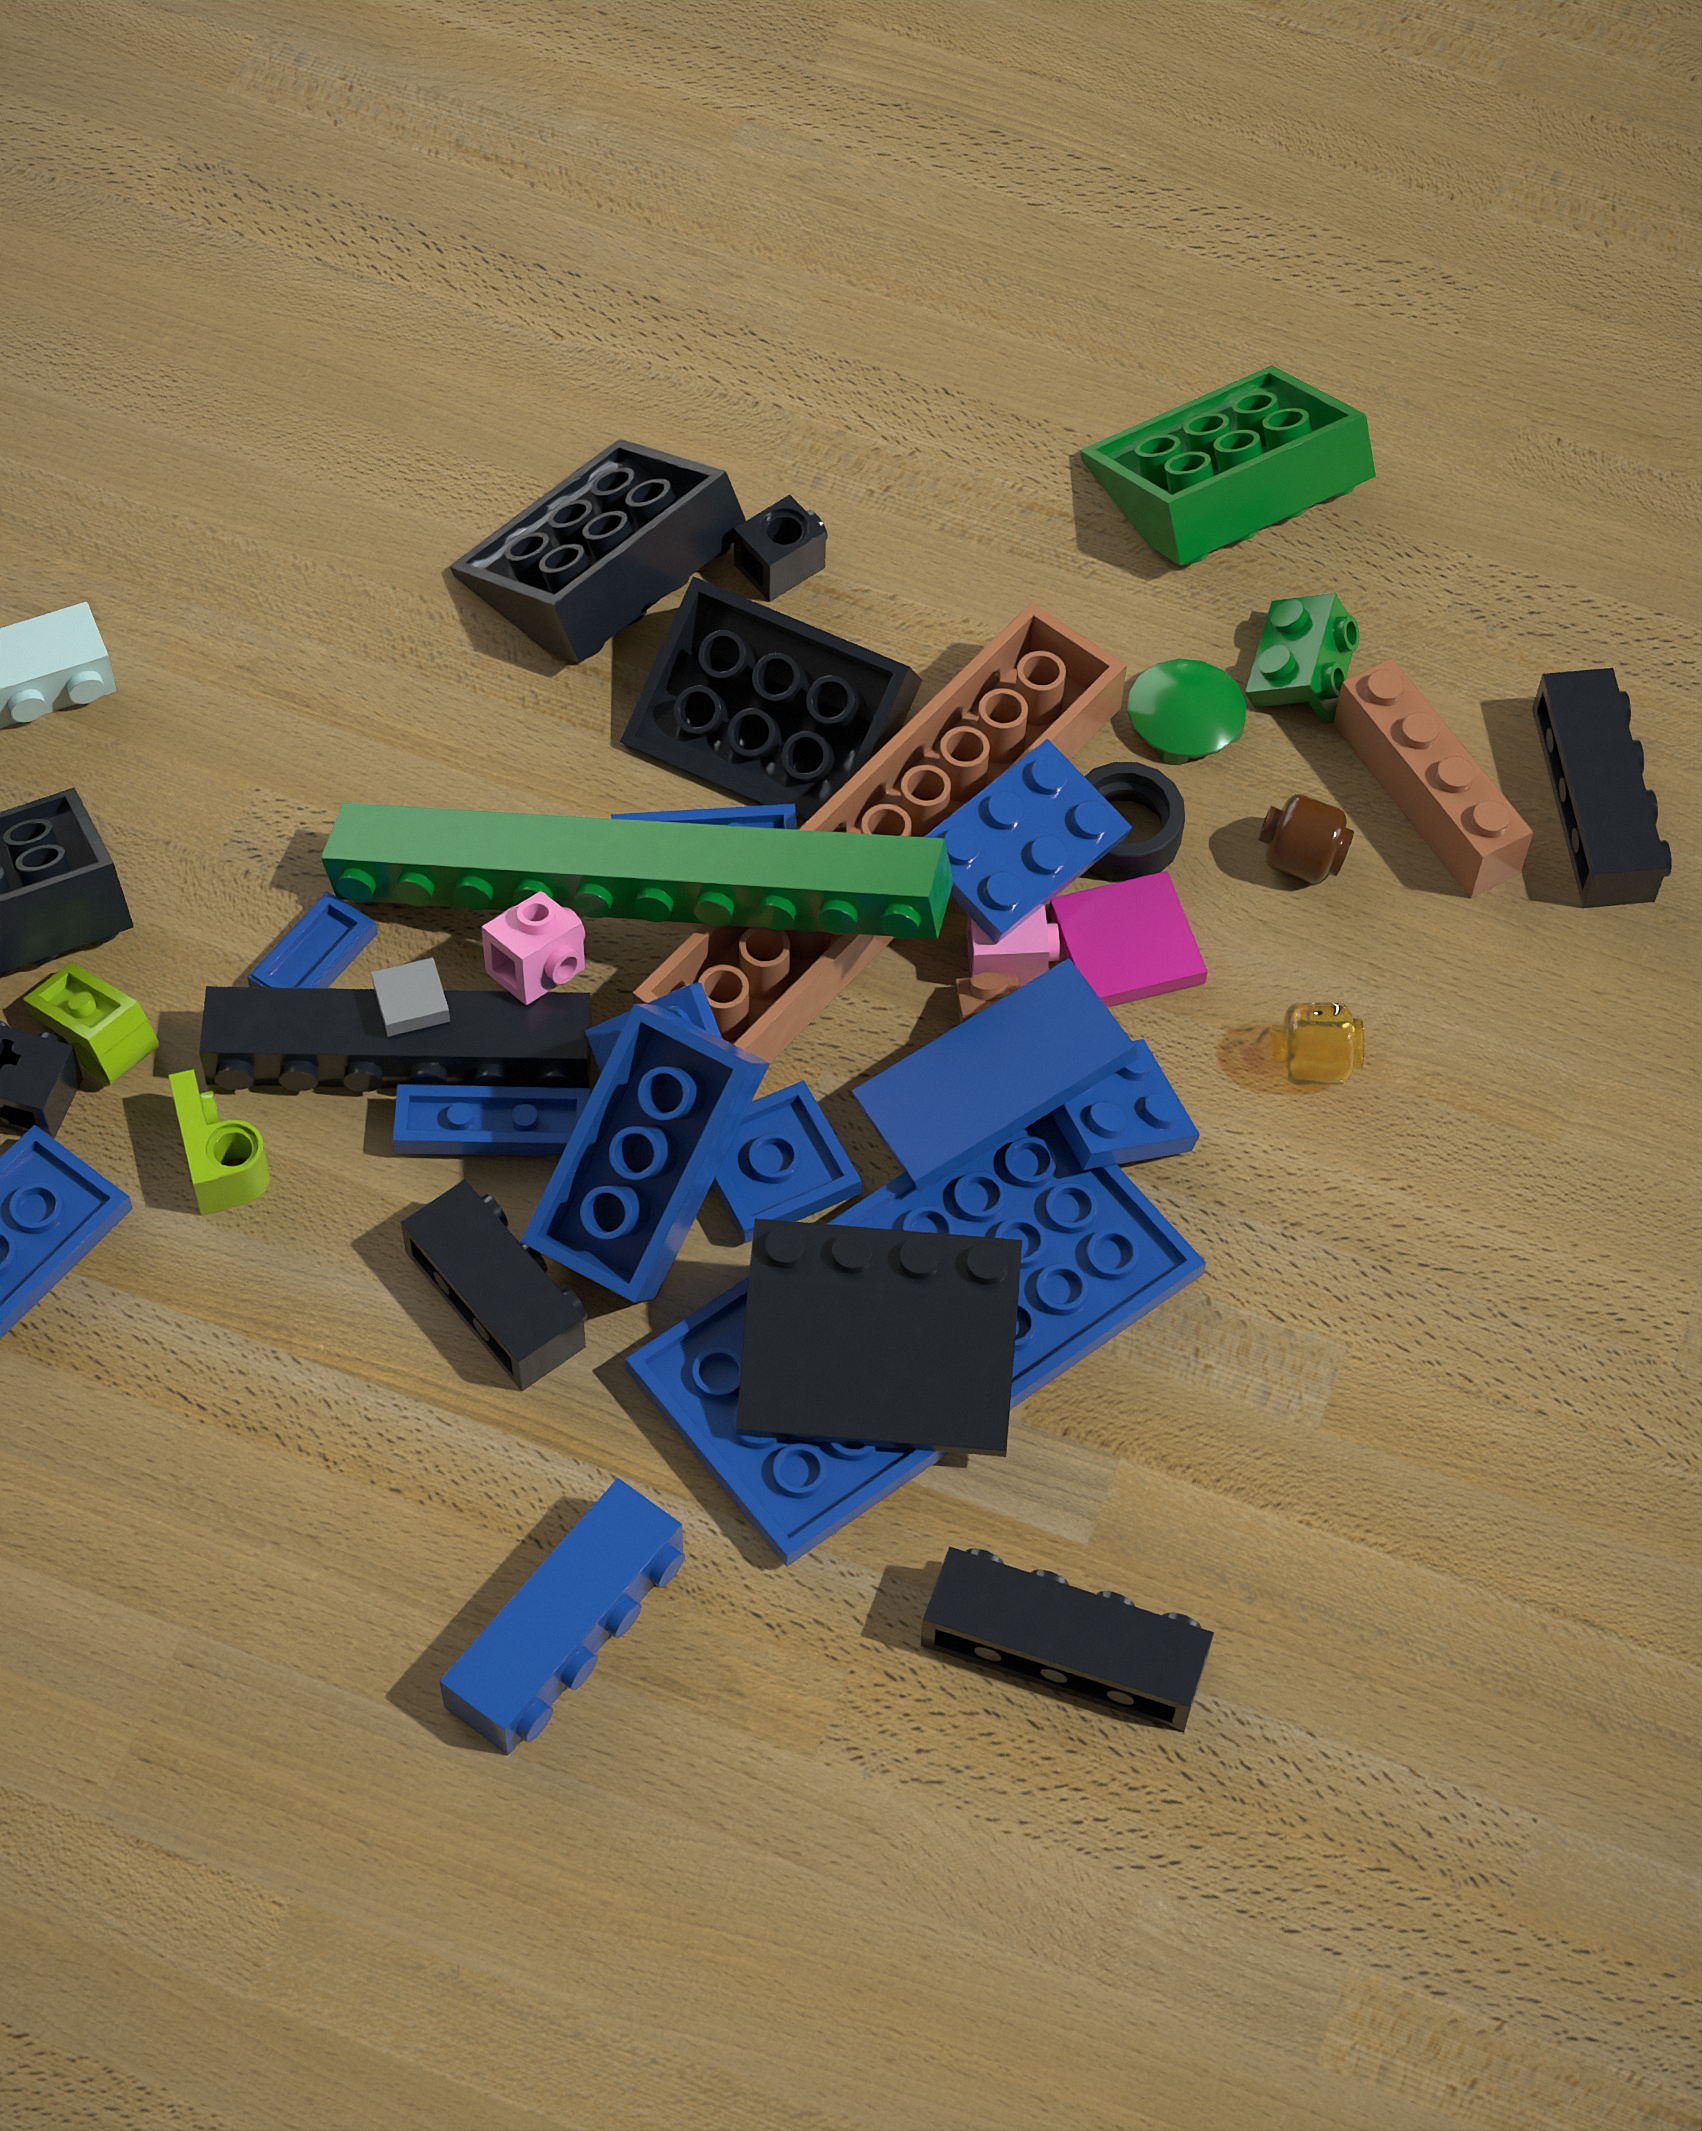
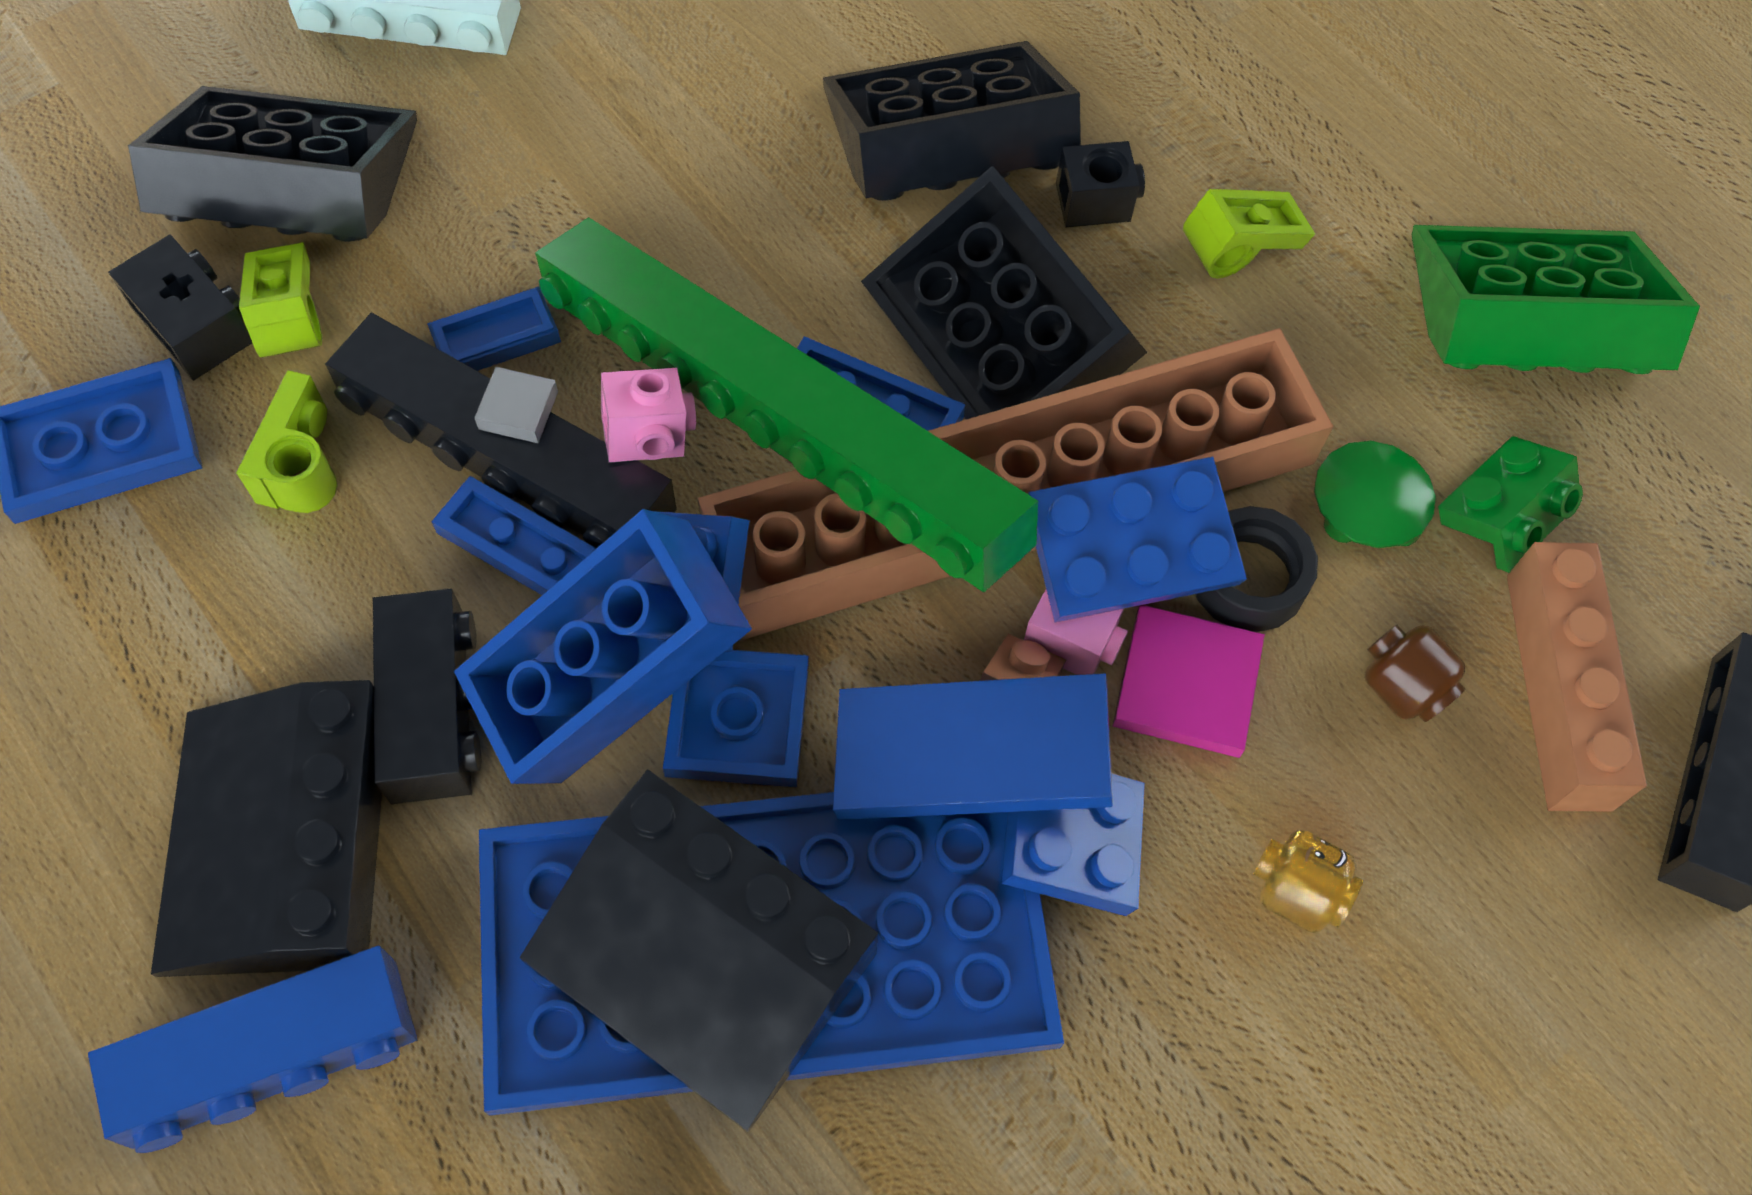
camera: 30 degrees right, 5 degrees up
(443, 1456) = (272, 834): none -> black slope
(931, 525) = (1236, 224): none -> lime plate

